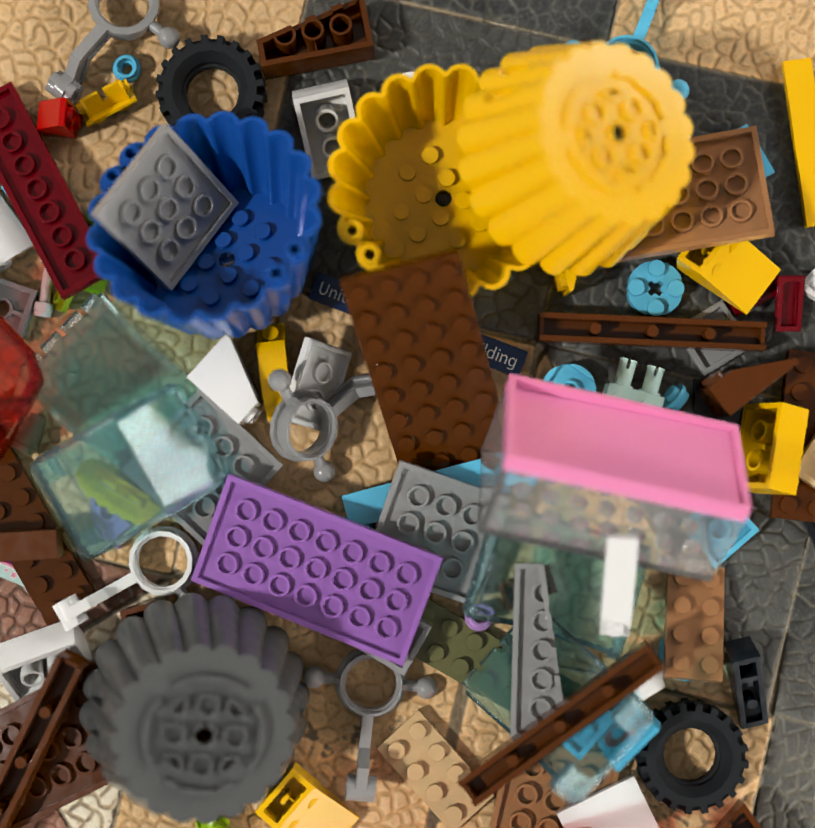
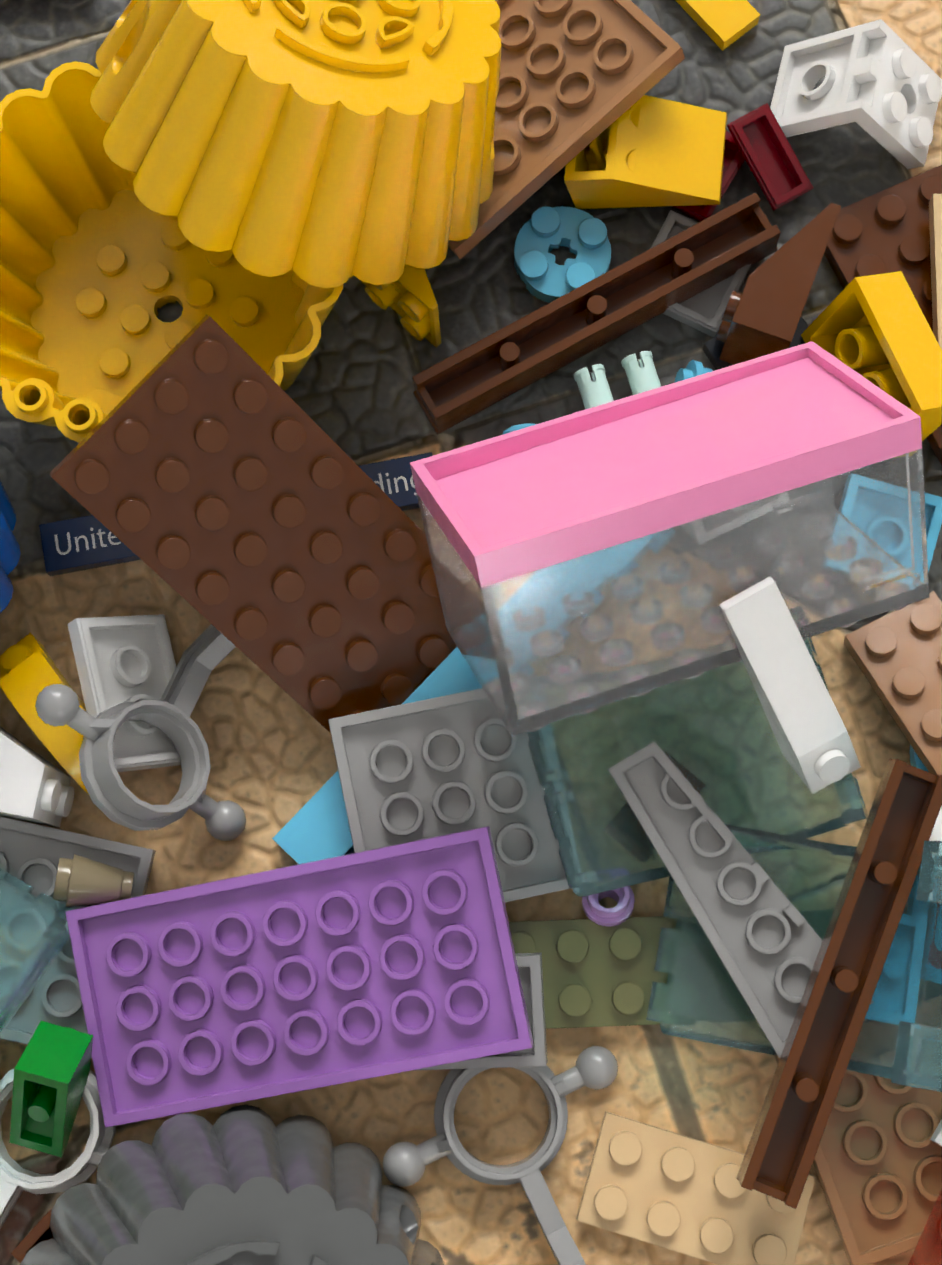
camera: 30 degrees left, 10 degrees down
(176, 549) = (49, 1087): none -> green slope
(246, 465) = (90, 882): none -> dark tan cone

